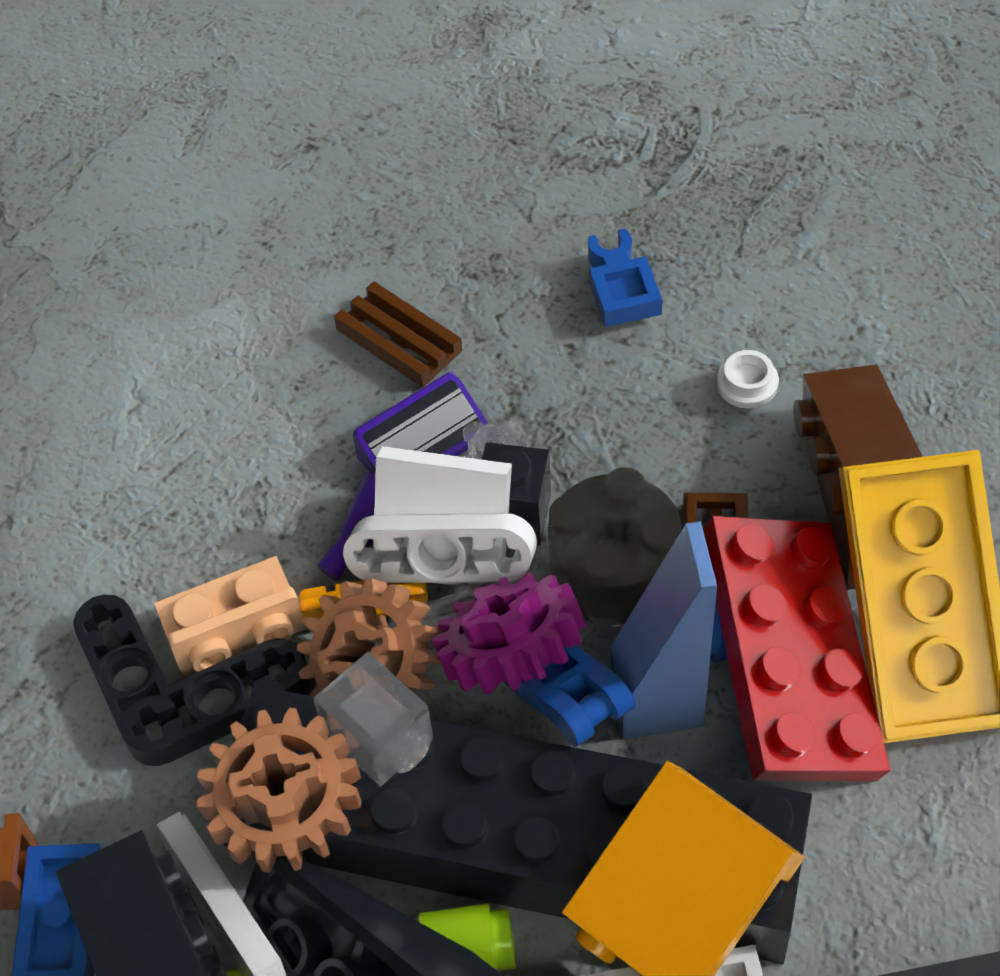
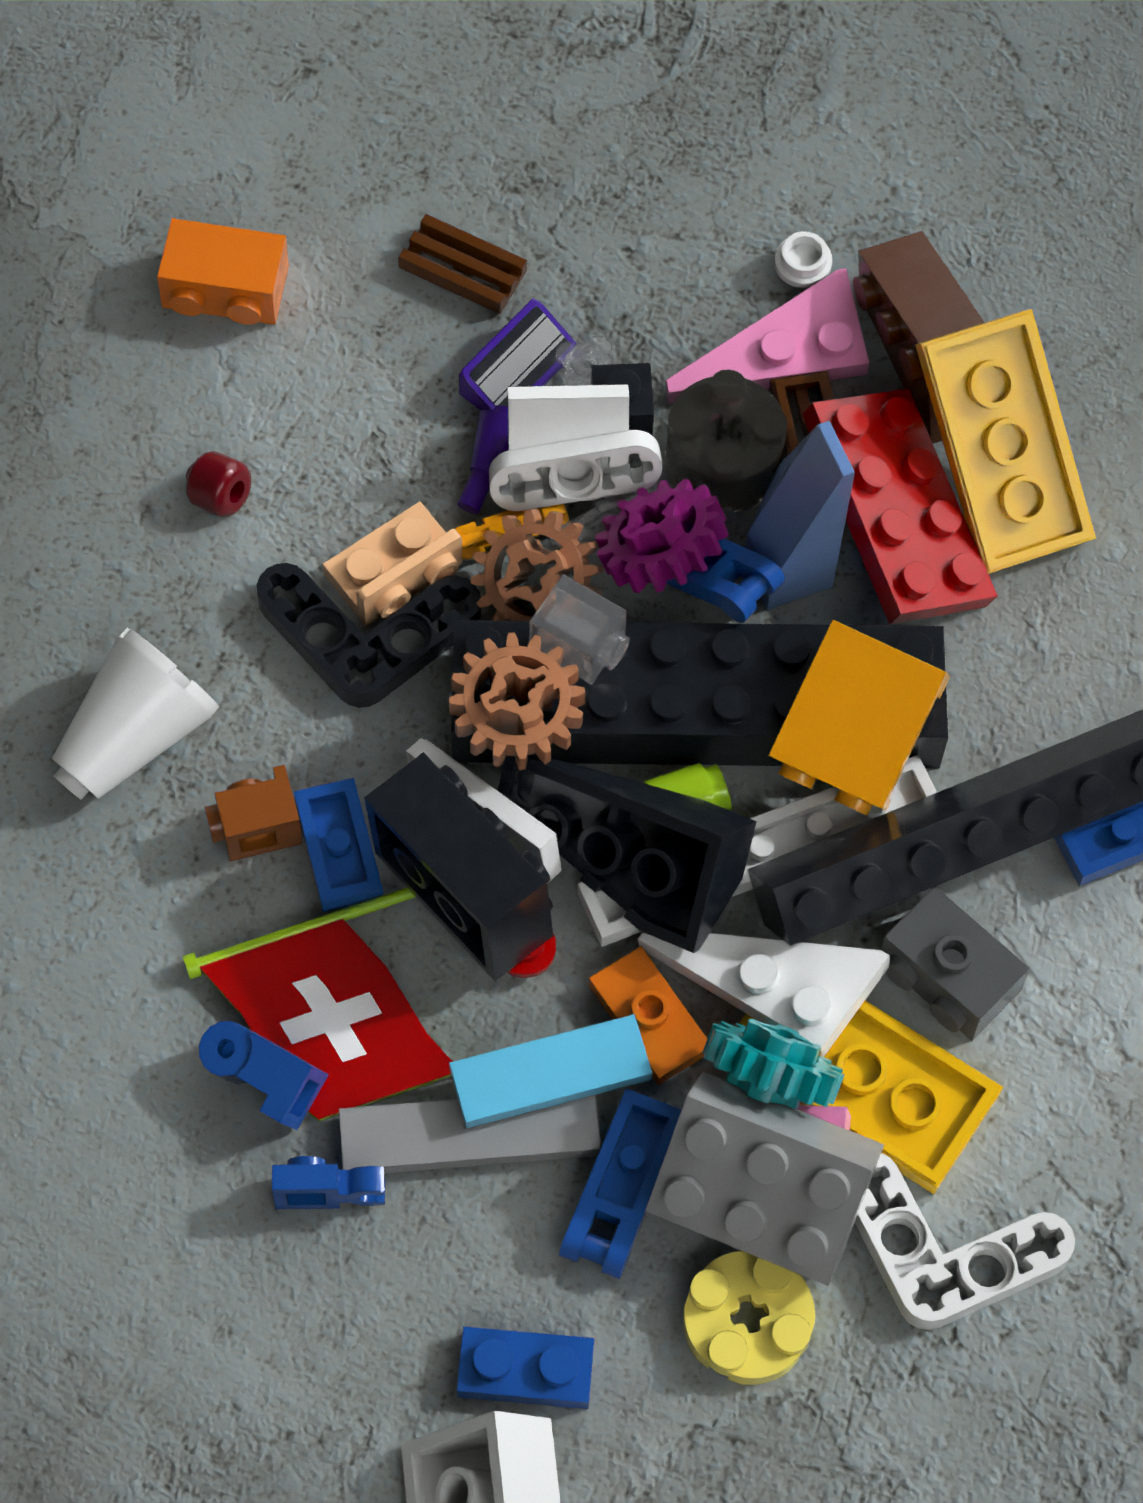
camera: 20 degrees left, 10 degrees up
(79, 504) = (218, 483): none -> dark red piece
(158, 304) = (223, 272): none -> orange brick
(622, 285) = (664, 181): blue plate -> none
(730, 454) = (801, 337): none -> bright pink wing

